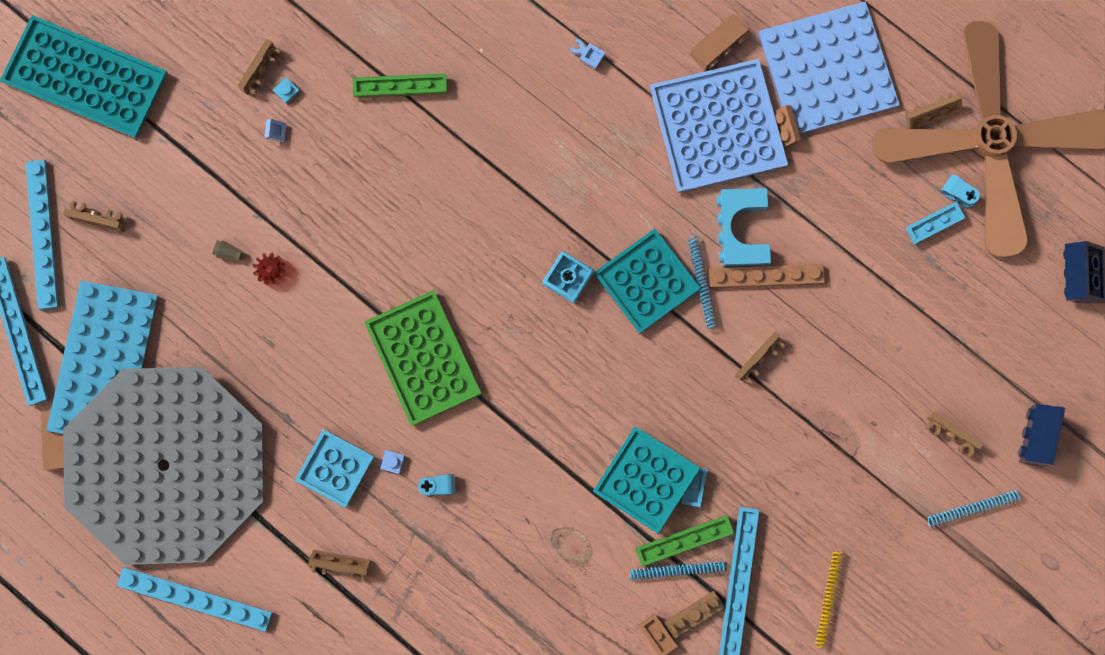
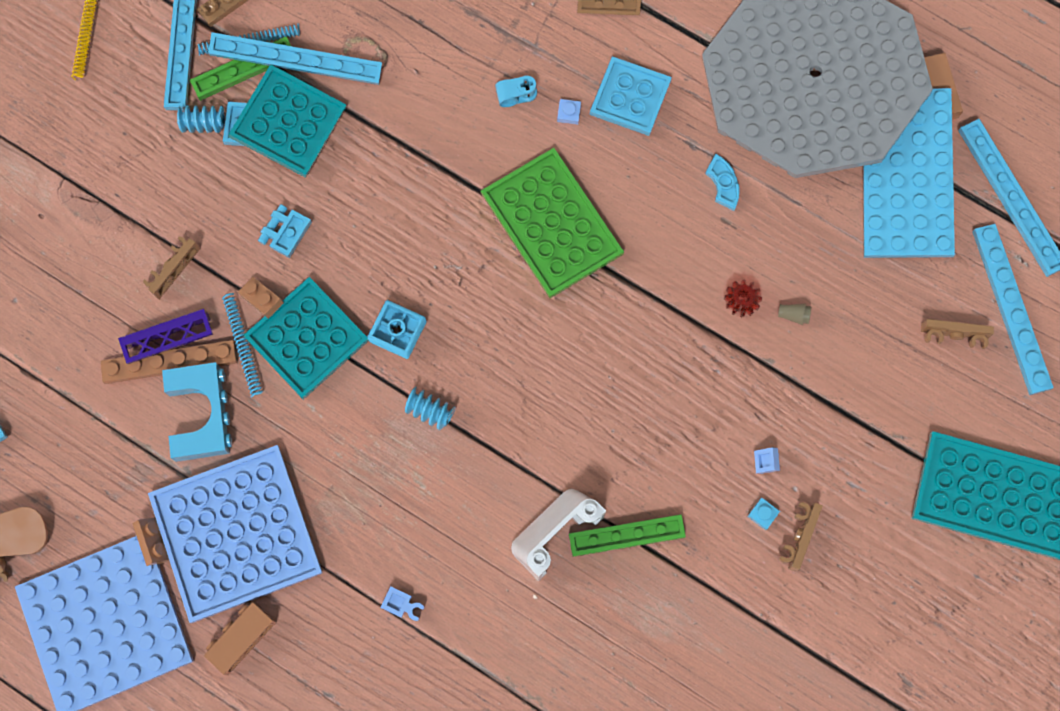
camera: 170 degrees right, 5 degrees down
(264, 378) = (725, 181): none -> medium azure tile
(459, 96) = (570, 504): none -> white windscreen
(547, 205) = (428, 409): none -> medium azure piece
(635, 539) = (295, 58): none -> medium azure plate
(654, 375) = (289, 234): none -> medium azure plate
(683, 320) = (260, 297): none -> nougat plate
(725, 492) = (201, 120): none -> medium azure piece
(769, 301) = (164, 331): none -> dark purple fence

